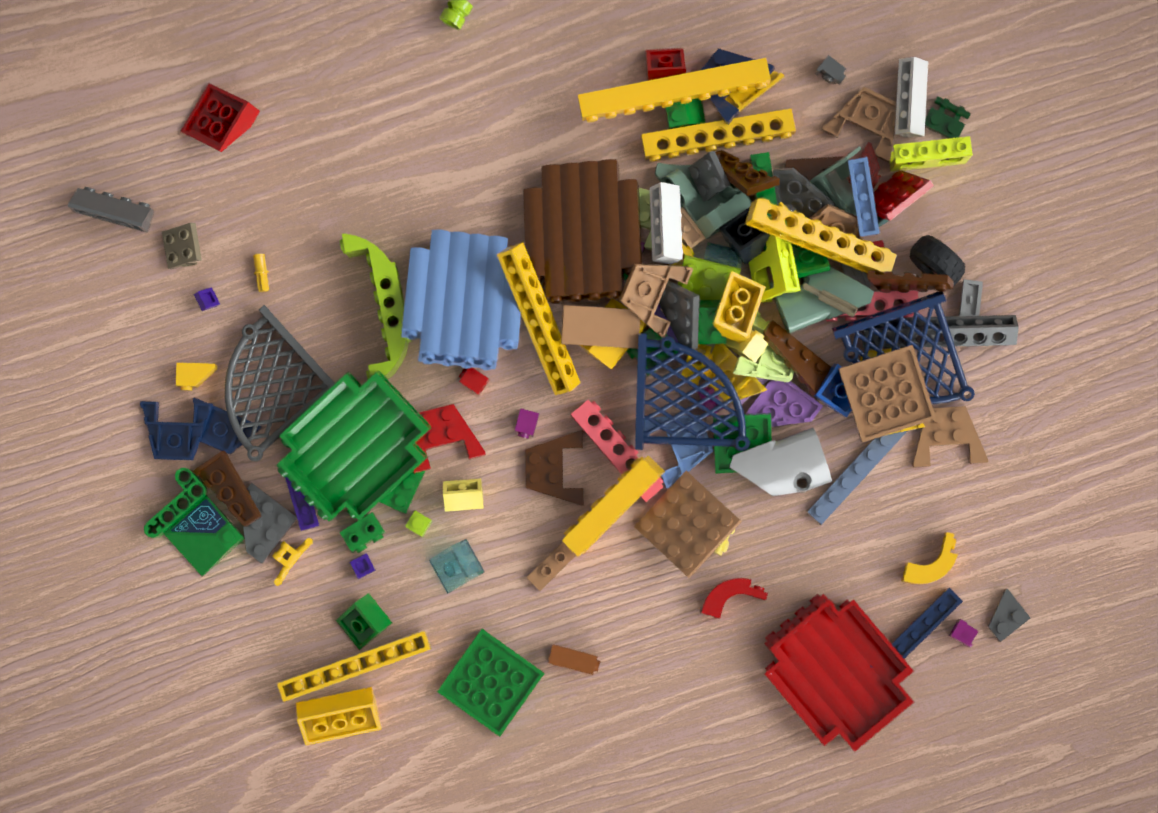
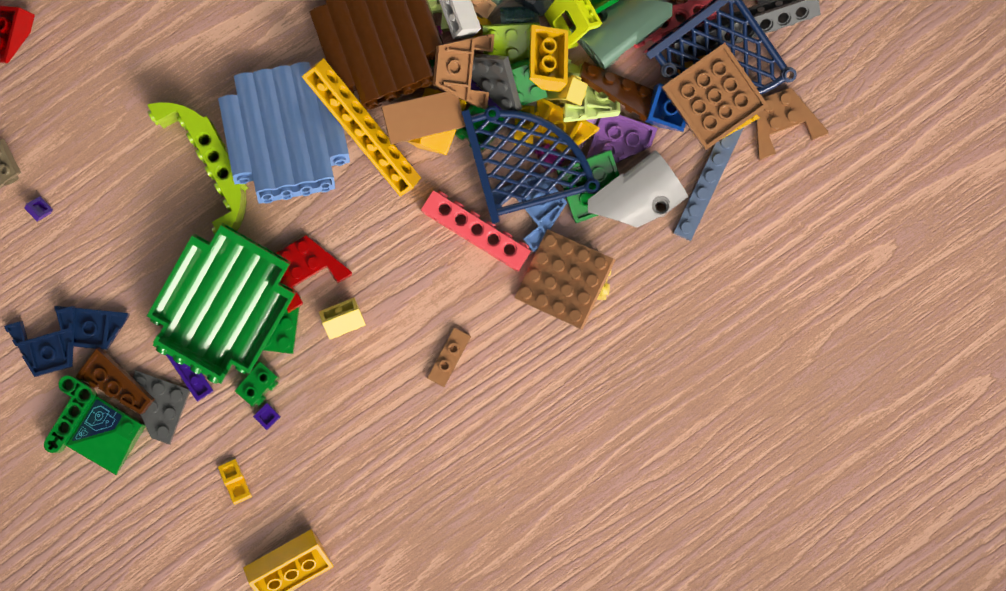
camera: 25 degrees left, 0 degrees up
(193, 374) = (47, 284): yellow slope -> none
(231, 403) = (92, 301): dark grey piece -> none
(261, 272) = (83, 167): yellow axle -> none
(292, 559) = (199, 426): yellow piece -> none
(312, 618) = (234, 481): none -> yellow slope
(354, 666) = (288, 515): yellow brick -> none
(363, 621) = (284, 468): green slope -> none
(418, 523) = (308, 359): lime brick -> none
(456, 566) = (357, 388): clear light blue slope -> none
(473, 380) = (318, 206): red brick -> none
(490, 682) = (424, 488): green plate -> none
(526, 423) = (381, 231): magenta brick -> none
(545, 468) = (413, 268): reddish brown wing -> none
(574, 659) = (497, 442): dark orange brick -> none
(610, 508) = (488, 283): yellow brick -> none
(721, 593) = (616, 336): red arch -> none
(829, 674) = (751, 374): red panel -> none
(832, 300) = (636, 23): dark tan axle -> none
(926, 622) = (811, 317): dark blue plate -> none
(940, 567) = (799, 258): yellow arch -> none
(963, 633) = (856, 301): magenta panel -> none
(1007, 617) = (893, 272): dark grey wing -> none

